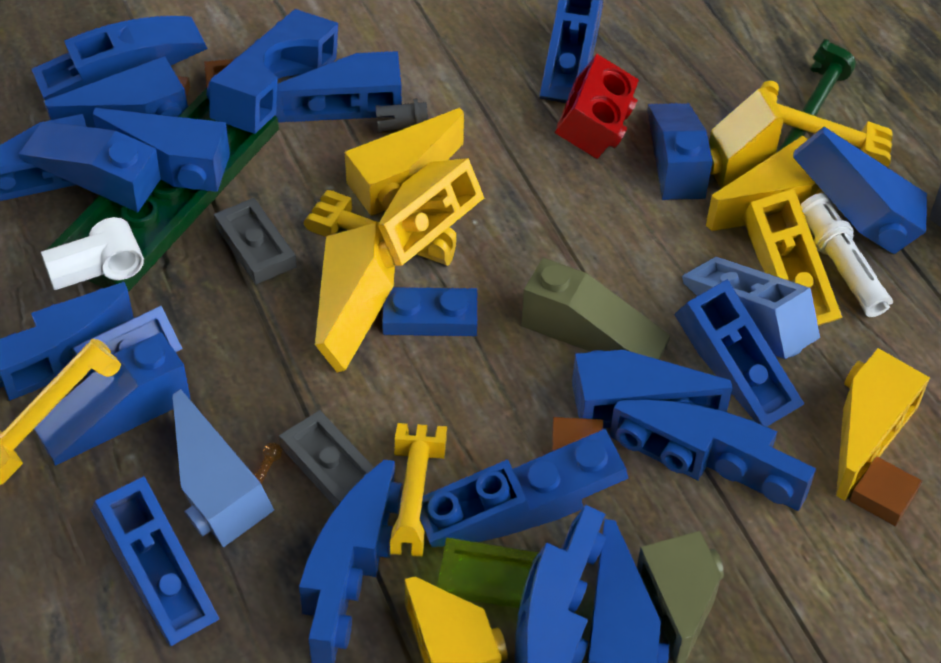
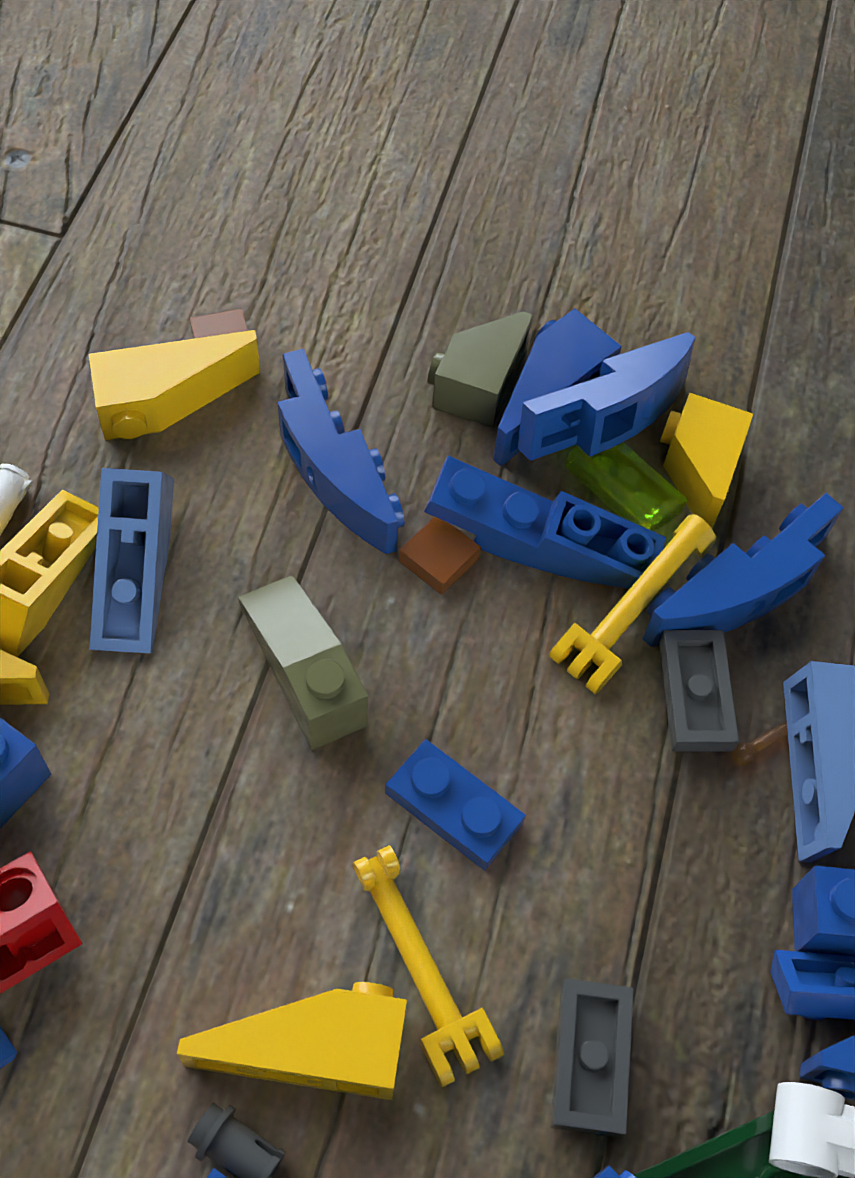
camera: 145 degrees left, 10 degrees up
(353, 290) = (520, 883): yellow slope -> none
(428, 206) = (354, 916): yellow slope -> none
(621, 375) = (348, 553): blue slope -> none
(738, 352) = (207, 522): blue slope -> none

